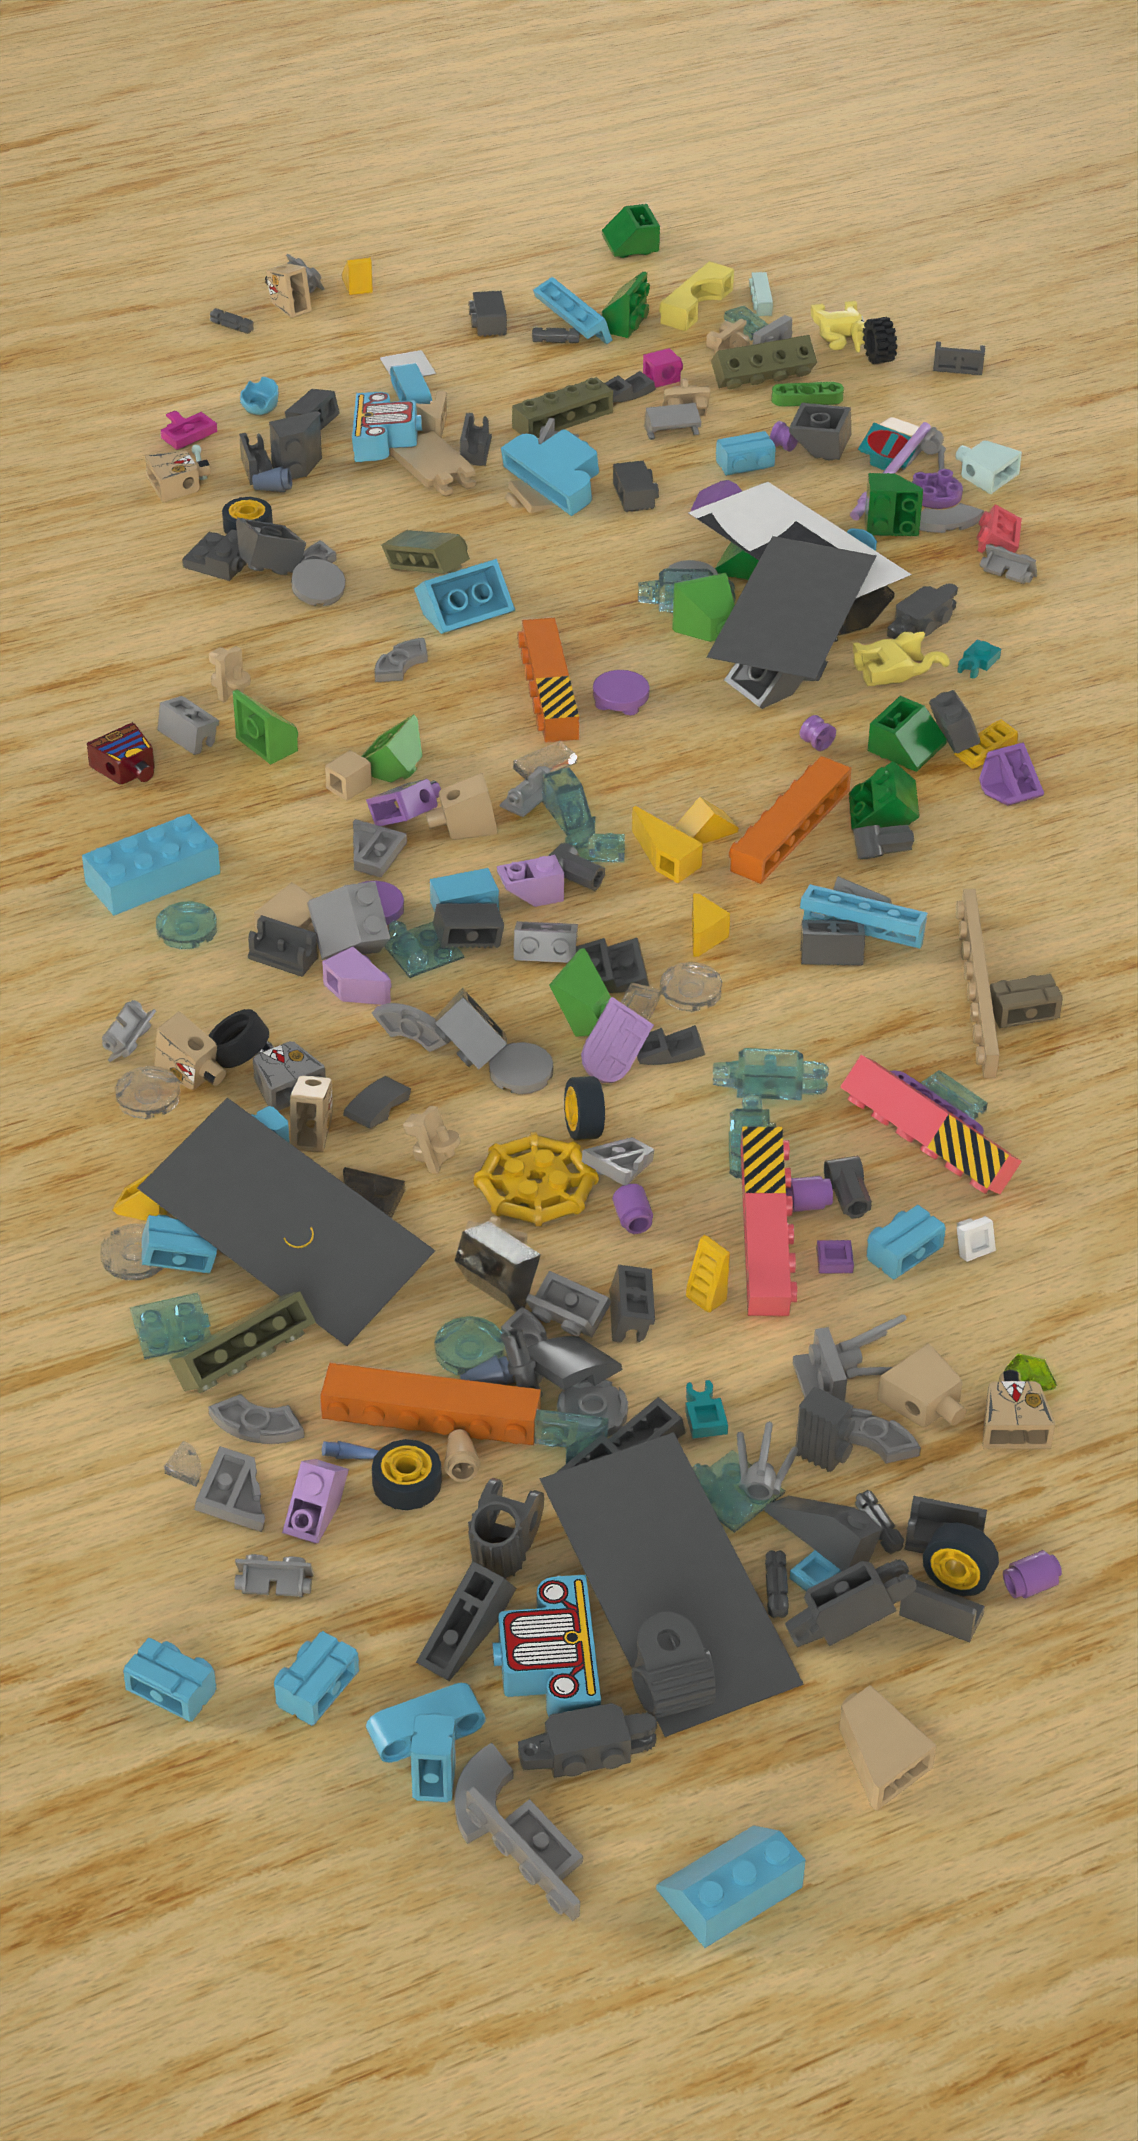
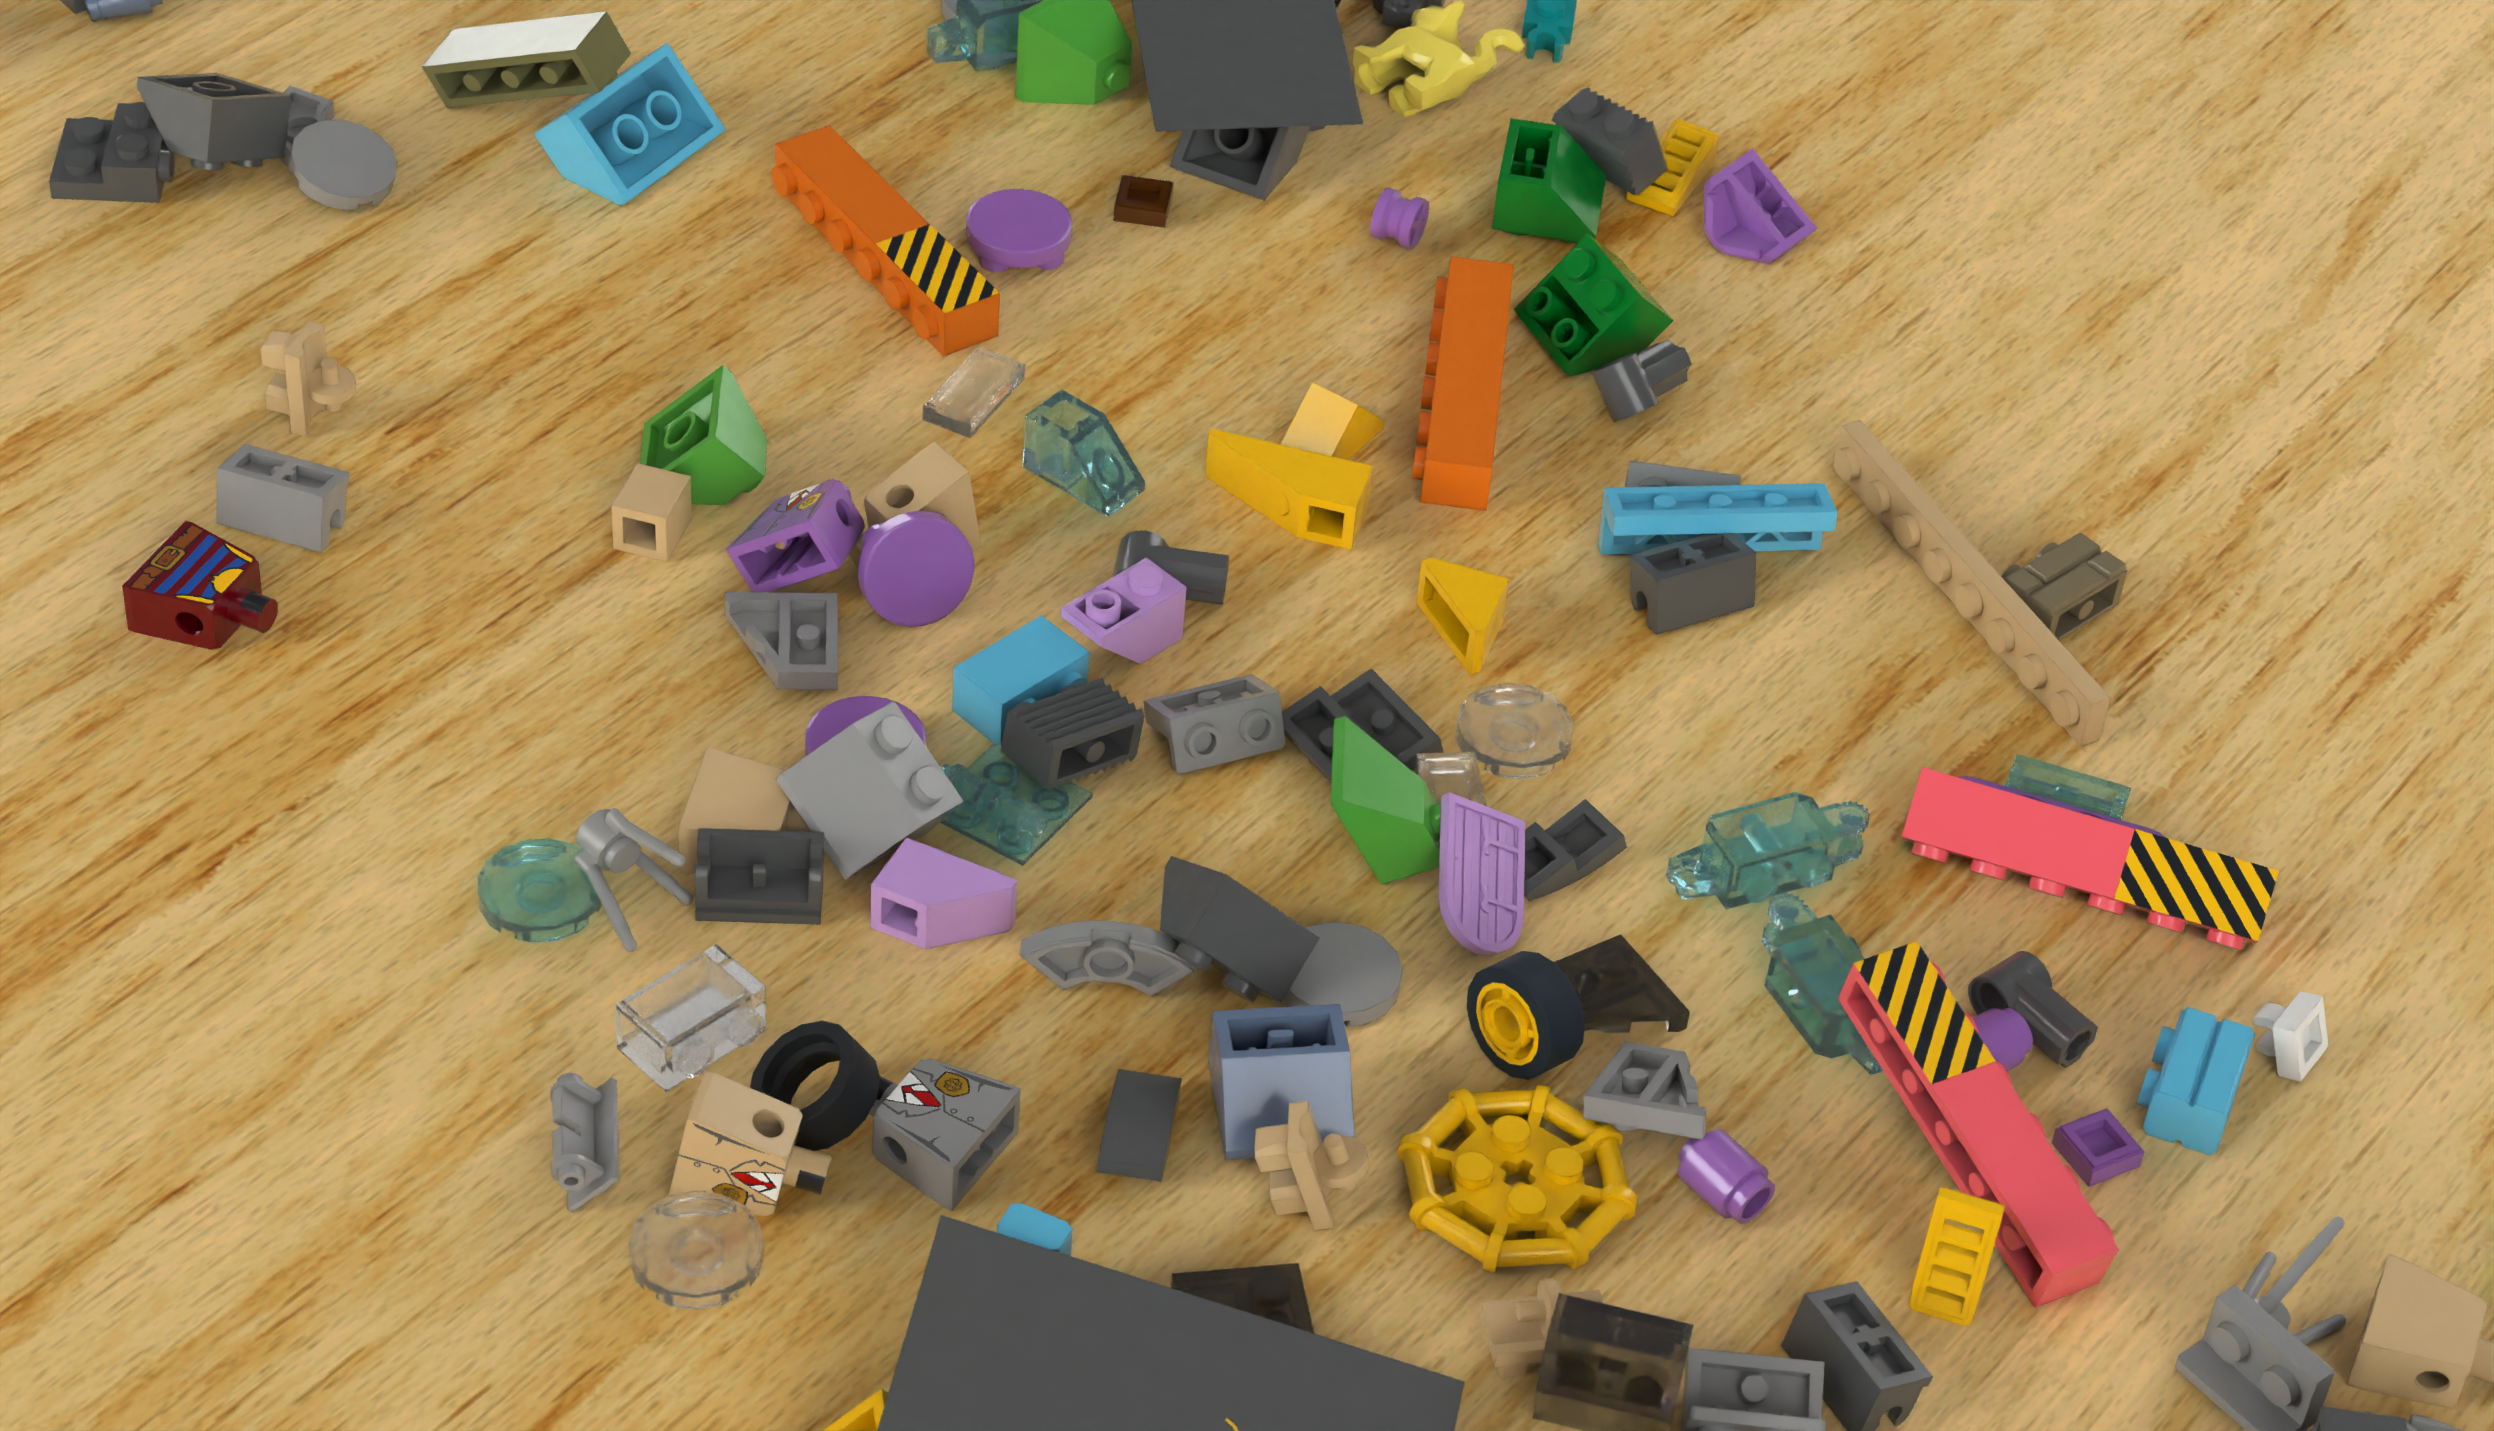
camera: 30 degrees left, 0 degrees up
(151, 864) = (400, 791): medium azure brick -> none
(209, 994) = (691, 1017): none -> clear brick
(223, 914) = (612, 845): none -> light grey plant
(246, 508) = (111, 68): wheel -> none
(263, 729) = (437, 468): bright green slope -> none
(309, 1101) = (1050, 1158): tan torso -> none
(402, 657) = (583, 271): light grey tile -> none
(446, 831) = (915, 568): none -> medium lavender tile
(458, 1093) = (1275, 1059): none -> sand blue slope
(527, 794) = (995, 453): light grey hinge -> none
(597, 847) = (1177, 517): clear light blue slope -> none
(641, 1113) = (1621, 989): none -> clear smoke wing
(696, 693) = (1143, 201): none -> reddish brown tile

